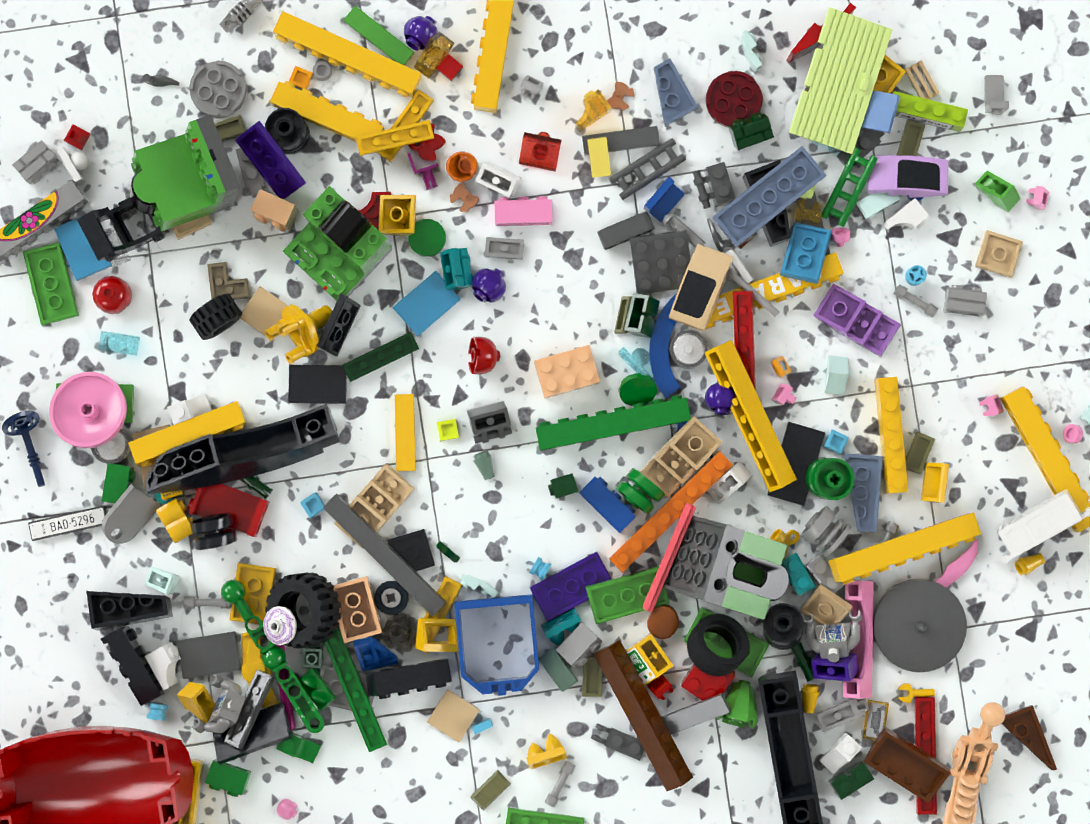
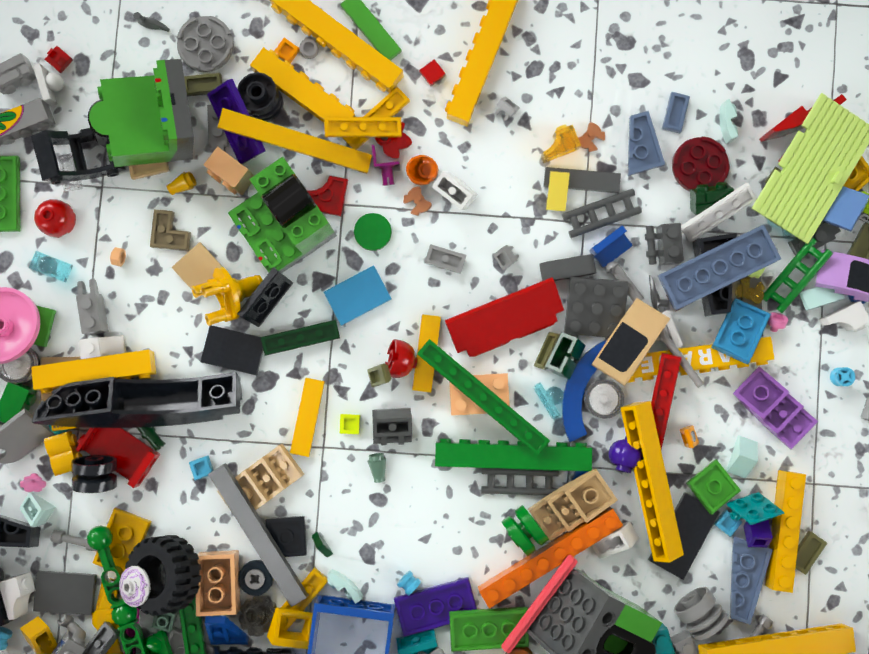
camera: 15 degrees right, 0 degrees up
(78, 251) = (29, 170): dark azure tile -> none
(153, 556) = (33, 483): none -> bright pink plant
(170, 375) = (91, 309): none -> light grey hinge
(183, 318) = (118, 256): none -> light nougat tile
(215, 316) = (146, 262): black tyre -> none
(229, 232) = (182, 183): none -> yellow cone
(332, 166) = (294, 140): none -> yellow tile
(397, 214) = (348, 202): yellow slope -> none
(419, 31) = (412, 32): dark purple plant -> none
(433, 54) = (419, 55): clear yellow arch -> none
(456, 268) = (394, 268): teal brick -> none
(465, 375) = (379, 375): none -> olive tile
(488, 285) = (421, 291): dark purple plant -> none
(507, 344) = (424, 372): none -> yellow tile
(523, 211) = (471, 227): bright pink brick -> none
(540, 151) = (501, 172): clear red tile -> none
(563, 233) = (505, 257): none -> light grey tile
(563, 486) = (449, 508): dark green piece -> none
(571, 372) = (483, 397): none -> green tile
(576, 293) = (505, 318): none -> red slope
(608, 504) = (490, 534): blue brick -> none
(615, 440) = (510, 489): none -> dark grey bar
(637, 389) = (548, 425): green tile -> none
(698, 53) = (675, 112): none -> sand blue tile
(759, 143) = (718, 212): none -> white tile
(782, 537) = (656, 609): yellow piece -> none
(783, 395) = (687, 465): bright pink tile -> none
(813, 409) = (713, 486): none -> bright green tile
(829, 478) = (716, 560): green wheel -> none
(854, 420) = (753, 509): none -> teal hinge
(864, 442) = (758, 534): none -> dark purple brick
(929, 309) = (847, 412): light grey bar -> none
(935, 482) = (815, 587): yellow tile -> none

